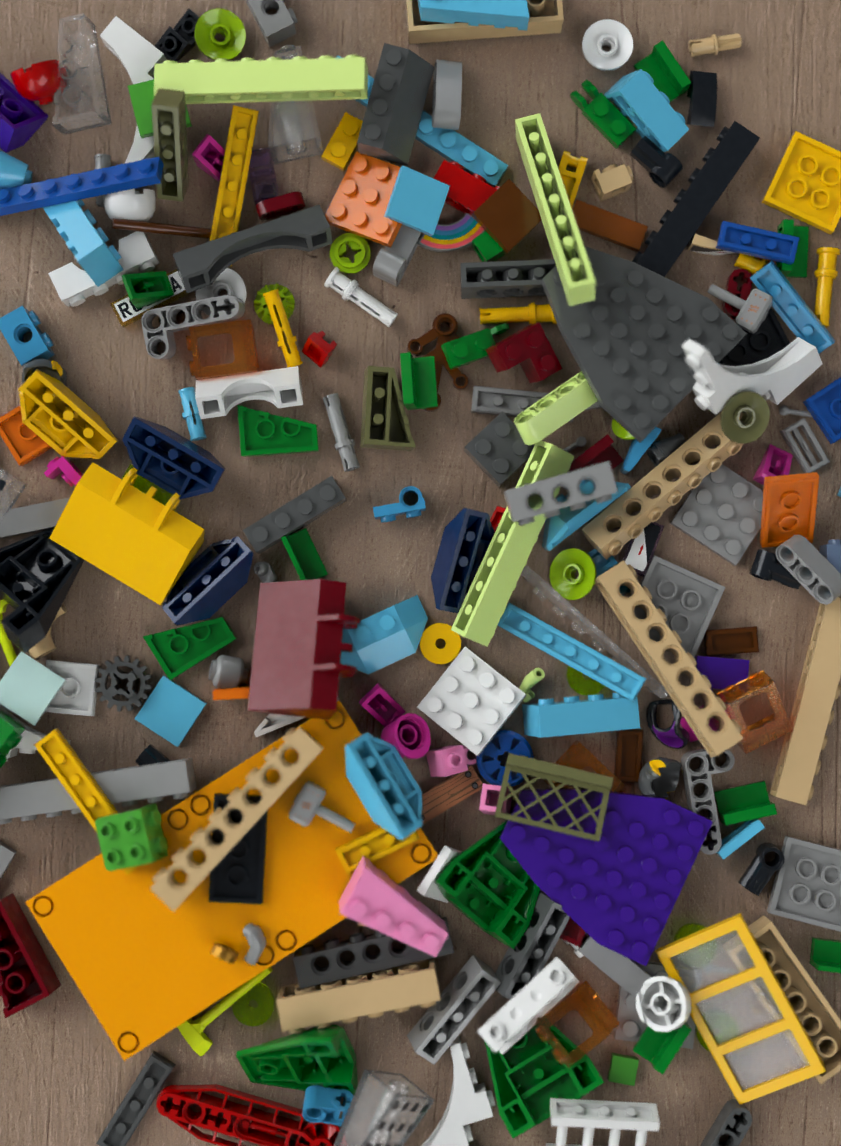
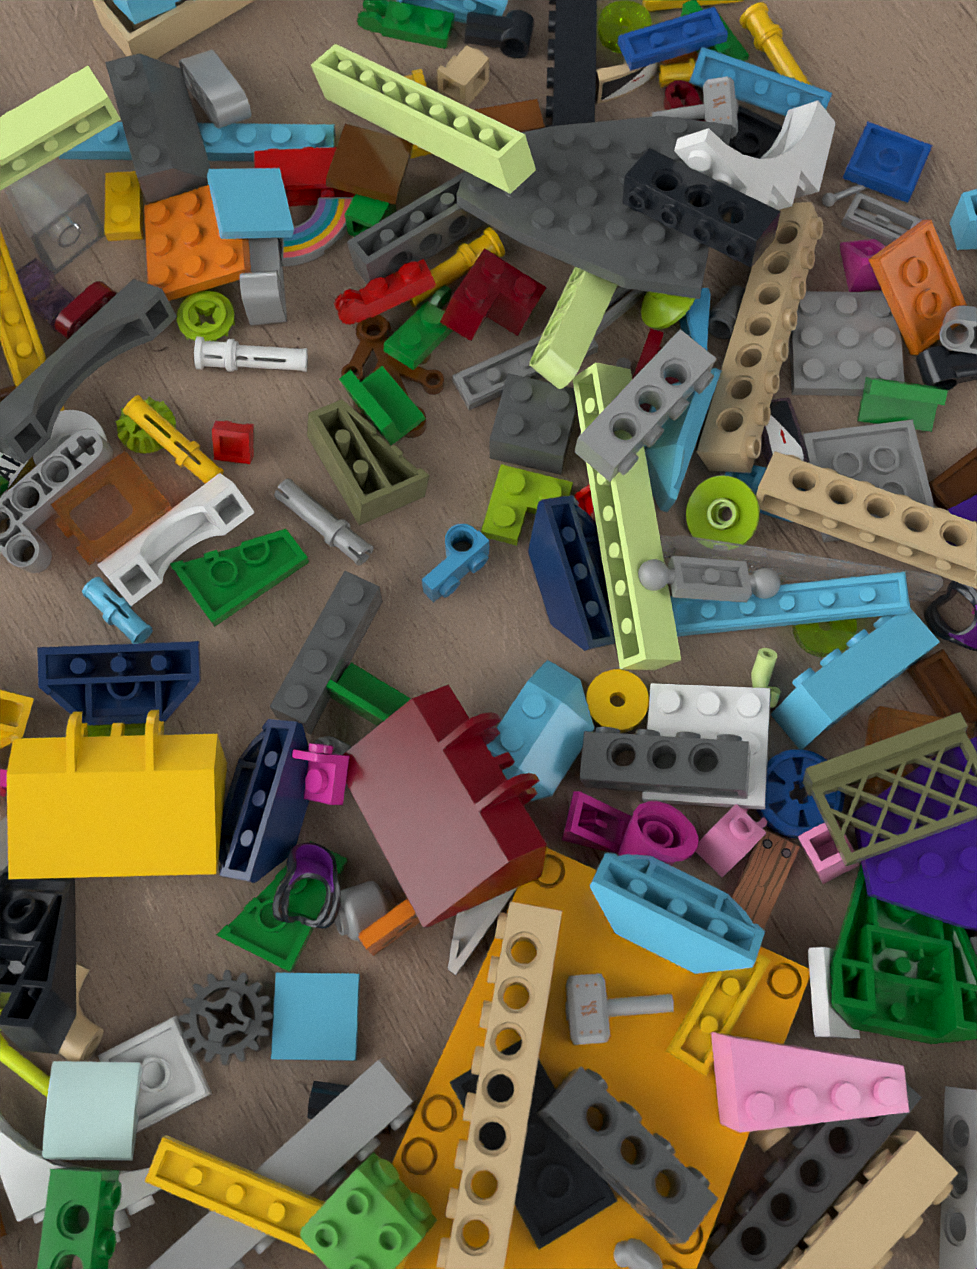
camera: 30 degrees left, 15 degrees down
(211, 631) = (313, 862): none -> black piece
(250, 587) = (325, 773): none -> dark pink bracket
(296, 926) = (688, 1196): none -> dark grey brick
(403, 678) = (726, 780): none -> dark grey brick
(465, 308) = (384, 293): none -> red hinge
(466, 485) = (515, 495): none -> lime plate
(533, 611) = (709, 579): none -> light grey plate
(666, 349) = (700, 207): none -> black brick
(726, 571) = (900, 401): none -> green panel
(745, 195) = (620, 14): none -> clear neon green piece
(754, 419) = (802, 207): olive dish -> none

